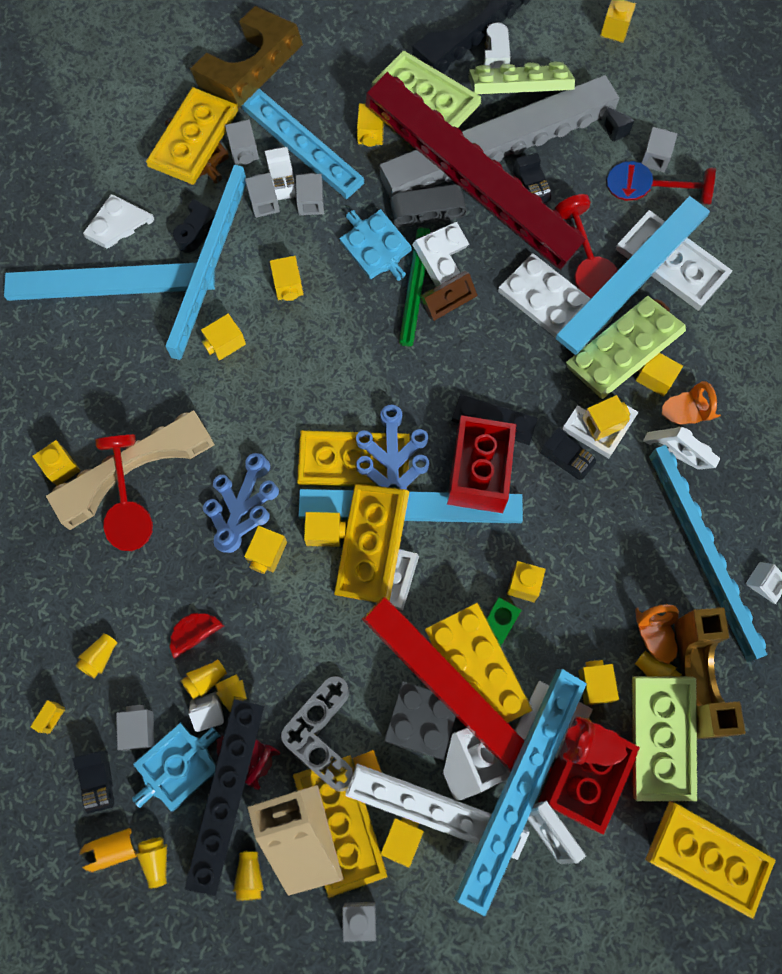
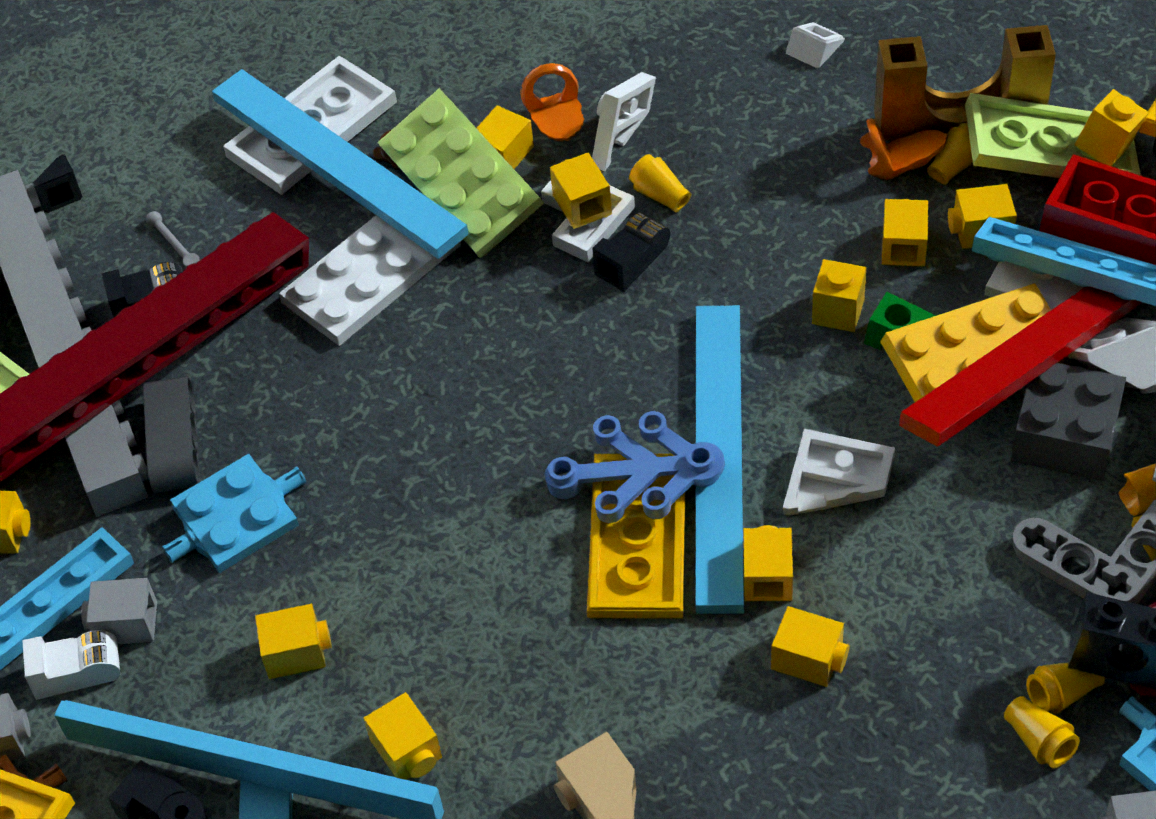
camera: 85 degrees left, 20 degrees down
(191, 631) = (959, 763): red tile -> none
(206, 712) = (1096, 721): white slope -> none
(256, 467) = (733, 687): medium blue plant -> none
(262, 195) = (111, 684): light grey brick -> none
(371, 543) = (792, 484): yellow tile -> none
(413, 296) = (323, 454): green axle -> none
(436, 250) = (263, 419): white plate -> none
(449, 295) = (347, 401): reddish brown plate -> none
(480, 409) = (568, 346): black plate -> none
(482, 464) = (655, 341): red brick -> none
(584, 629) = (905, 232): none -> yellow brick
(593, 271) = (322, 217): red piece -> none
(593, 744) = (1083, 189): red piece -> none
(594, 181) = (154, 219): none -> light grey hinge
(626, 472) = (658, 182): none -> yellow cone
(634, 180) = (168, 171): piece -> none
(659, 149) = (115, 134): light grey brick -> none
(667, 779) = (1111, 128): none -> yellow brick
(711, 561) = (754, 105): medium azure plate -> none

